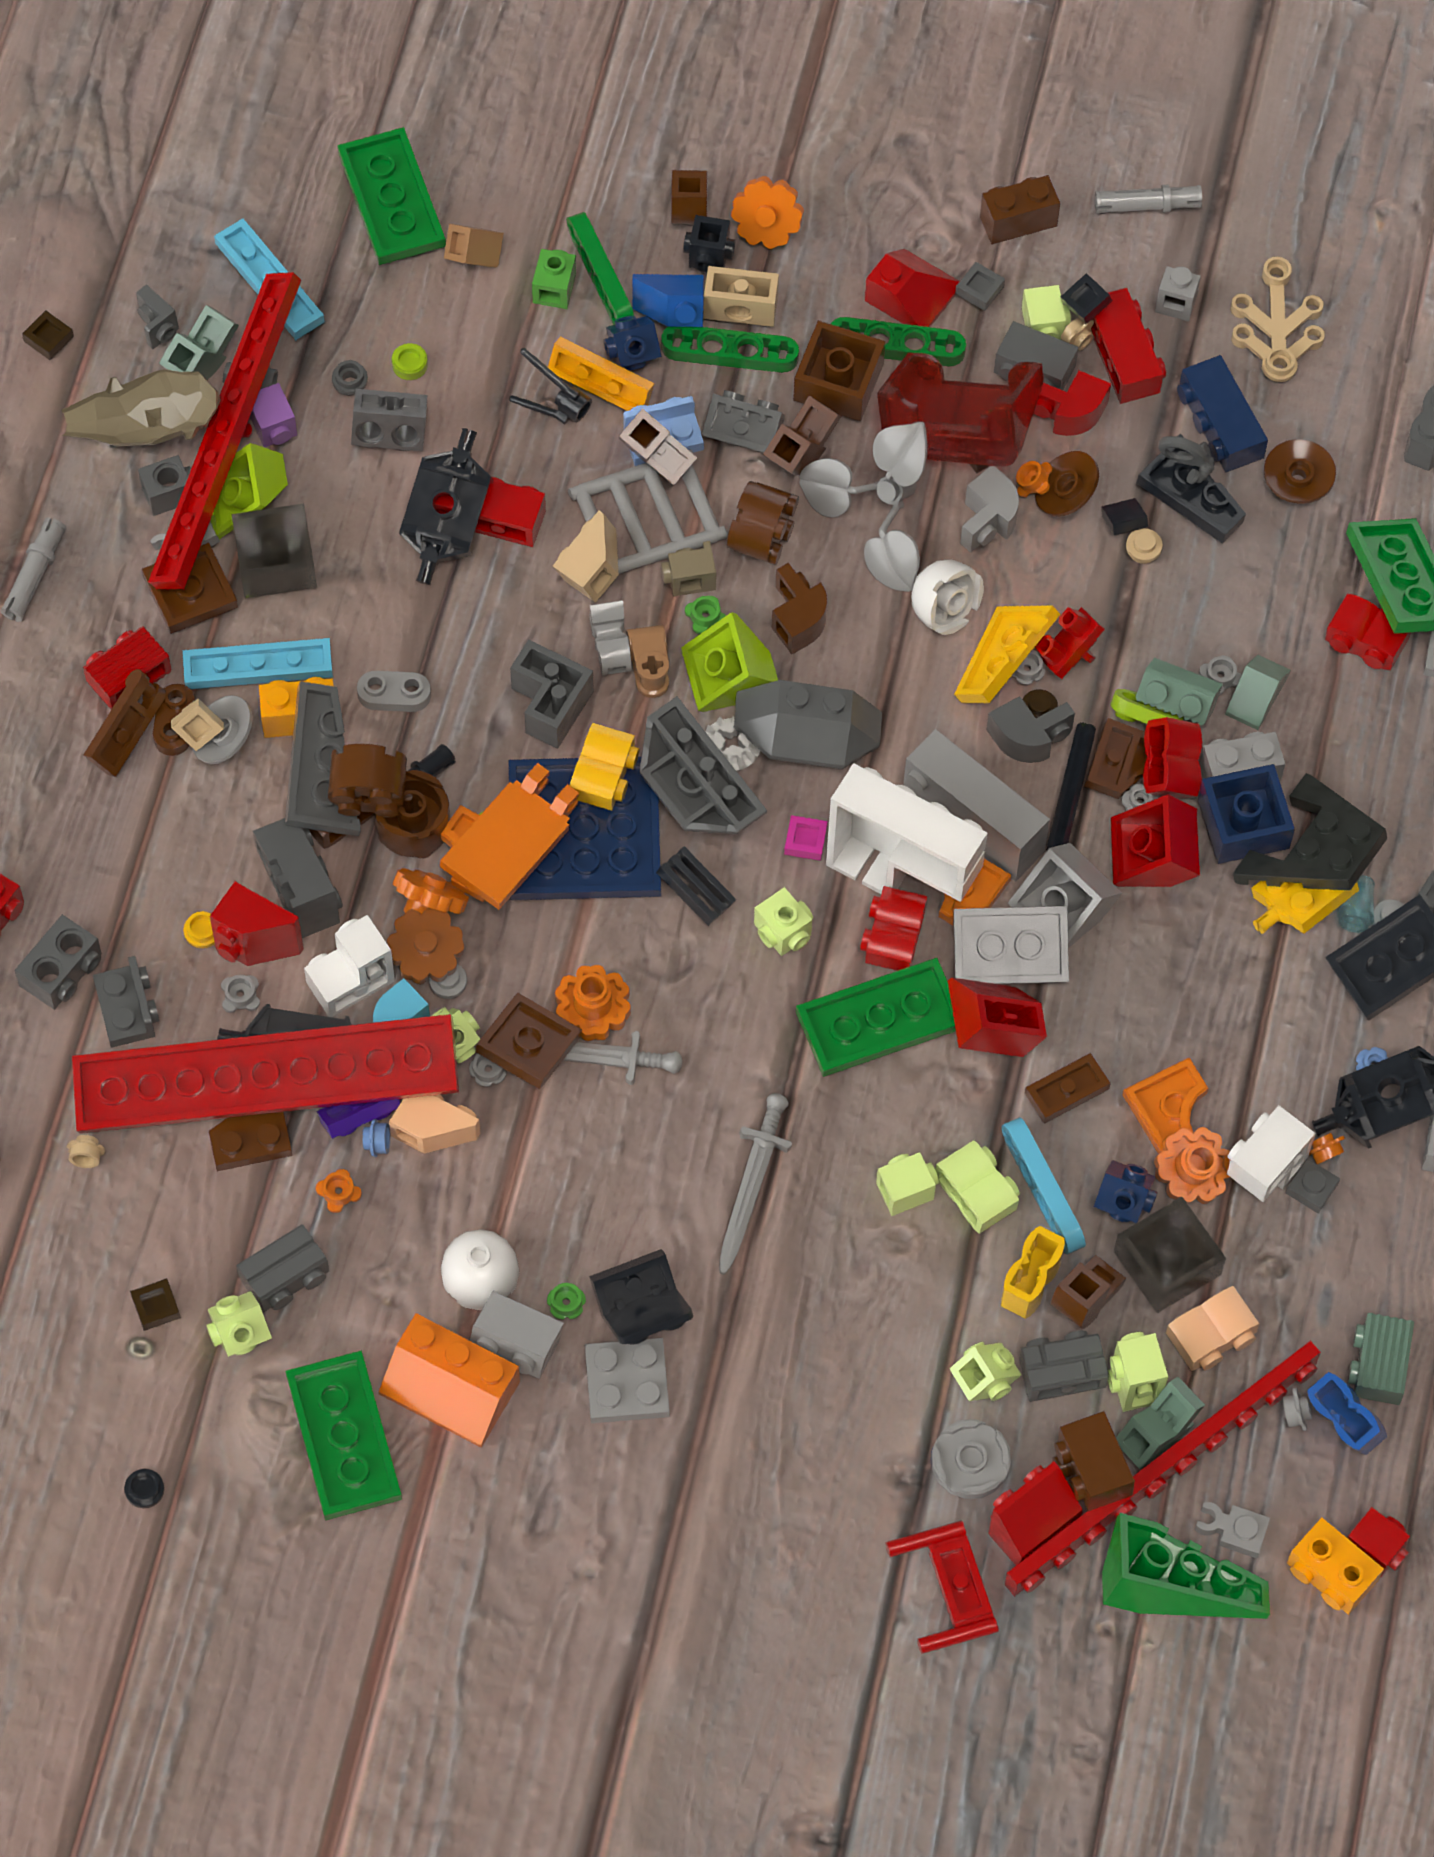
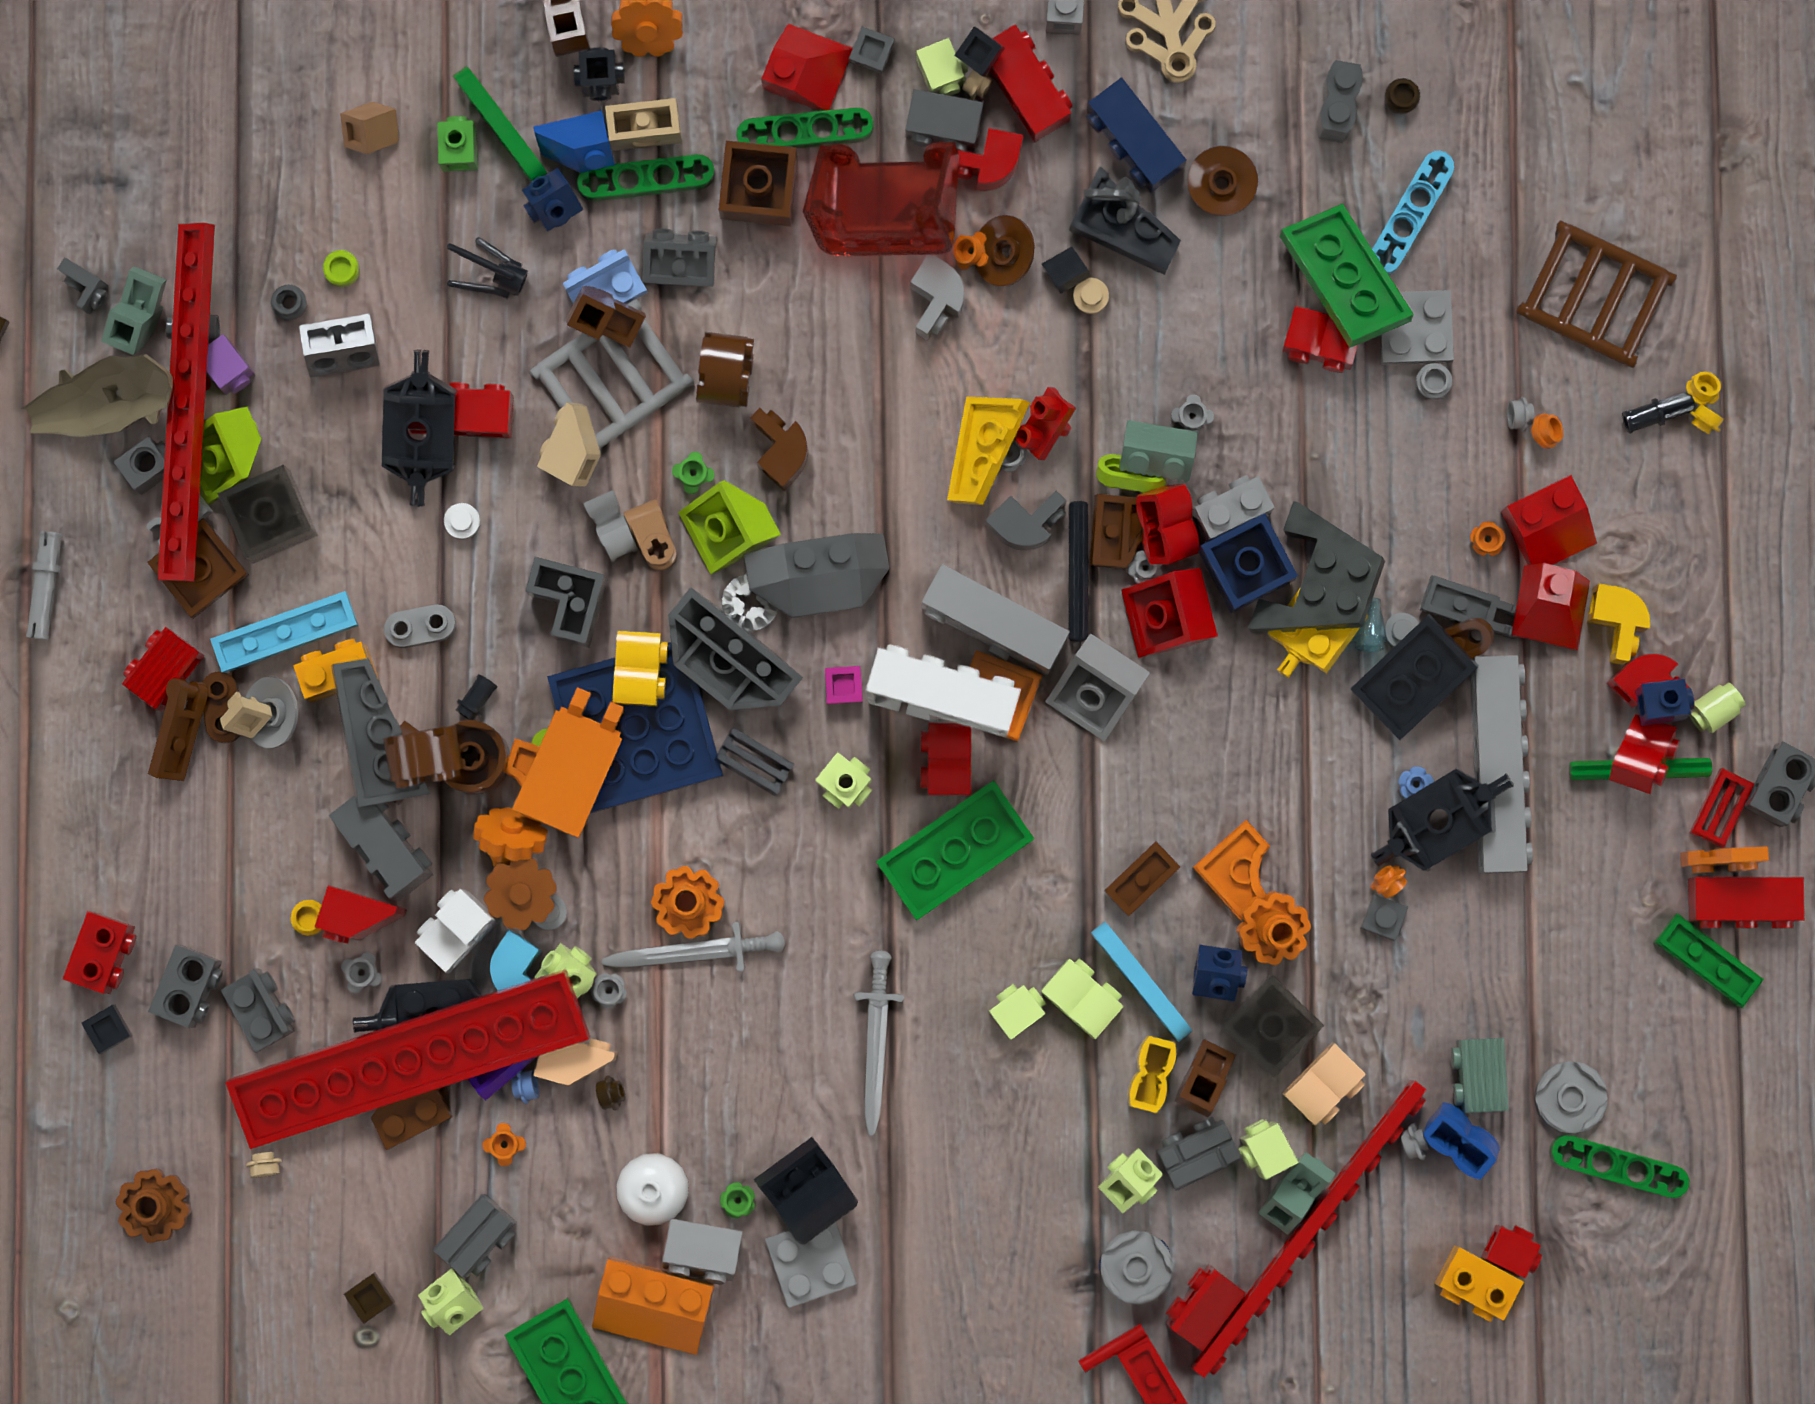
camera: 10 degrees left, 20 degrees up
(254, 261) = (176, 208): medium azure plate -> none
(391, 196) = (274, 90): green plate -> none
(462, 1164) = (610, 1093): none -> dark brown plate
(463, 605) = (462, 521): none -> white plate
(528, 1040) = (639, 961): reddish brown plate -> none
(599, 375) = (529, 244): light orange plate -> none
(690, 570) = (667, 432): dark tan brick -> none
(805, 438) = (741, 266): reddish brown brick -> none
(903, 454) = (845, 291): light grey plant -> none
(946, 595) = (914, 400): white cylinder -> none
(995, 1017) = (1060, 828): red slope -> none
(1011, 944) = (1059, 752): plate -> none
(1040, 702) = (1030, 492): dark brown plate -> none
(1093, 1462) = (1249, 1253): reddish brown brick -> none
(1162, 1575) = (1333, 1327): green wedge -> none
(1240, 1530) = (1387, 1265): light grey plate -> none
(1257, 691) = (1231, 423): sand green slope -> none
(1271, 1153) = (1343, 912): white brick -> none

